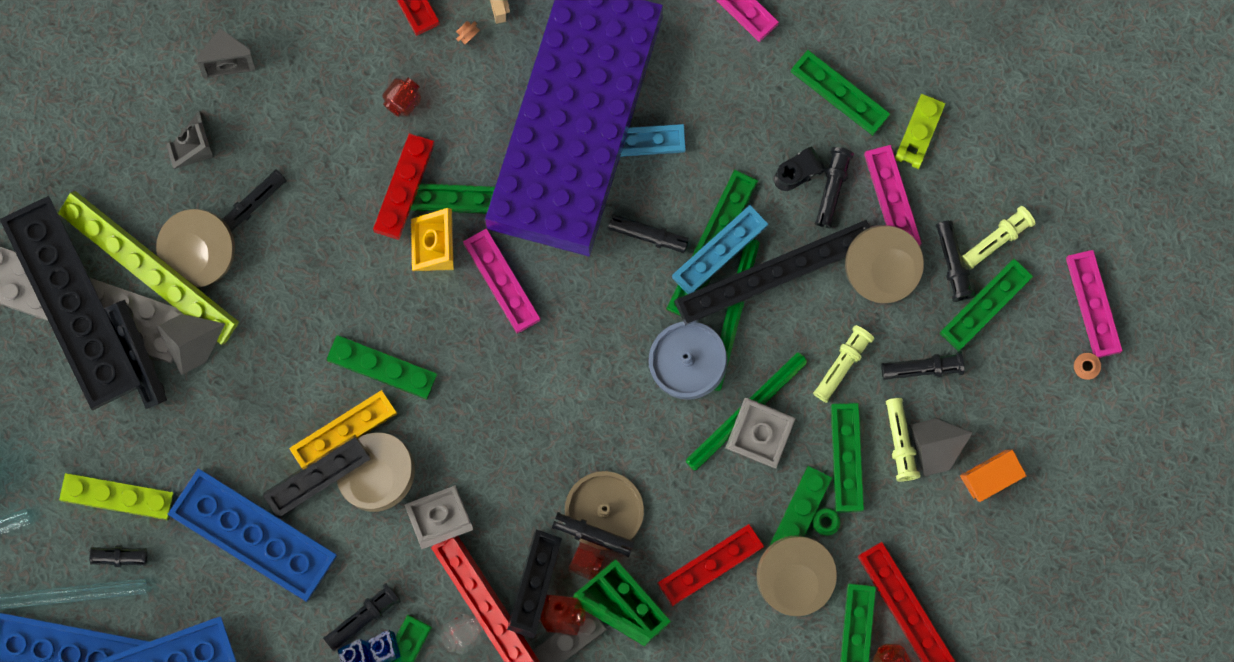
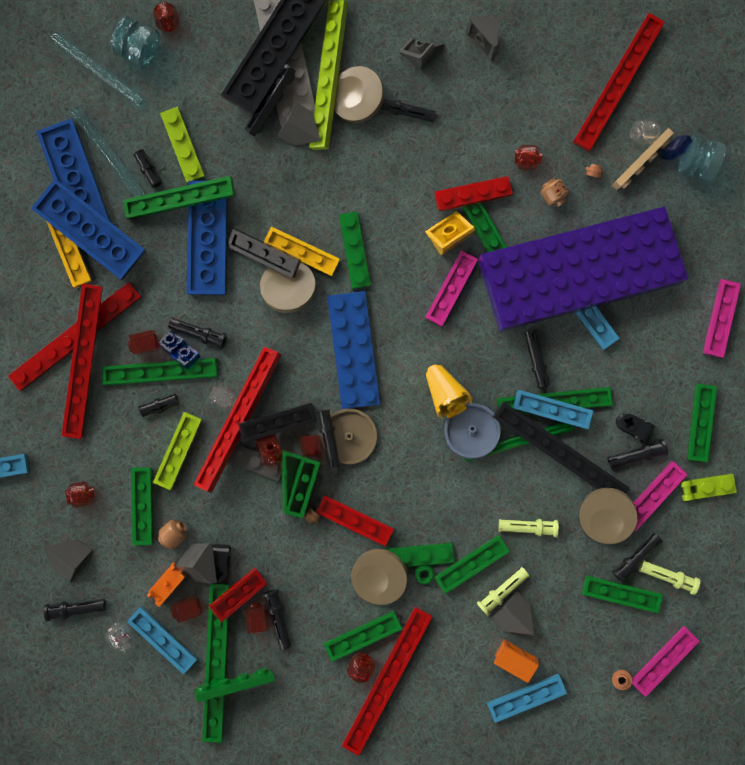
camera: 65 degrees right, 10 degrees up
(182, 537) = (179, 198): none -> green plate
(438, 517) = (283, 340): light grey tile -> none
(463, 92) = (555, 192): none -> medium nougat head
(502, 442) = (353, 350): none -> blue plate
(623, 360) = (447, 393): none -> yellow cone
(675, 613) = (311, 516): none -> medium nougat plate
(760, 433) = (454, 502): light grey tile -> none
(761, 396) = (463, 485): green axle -> none
(933, 366) = (563, 585): black pin -> none
(1044, 490) = (526, 698): none -> dark azure plate

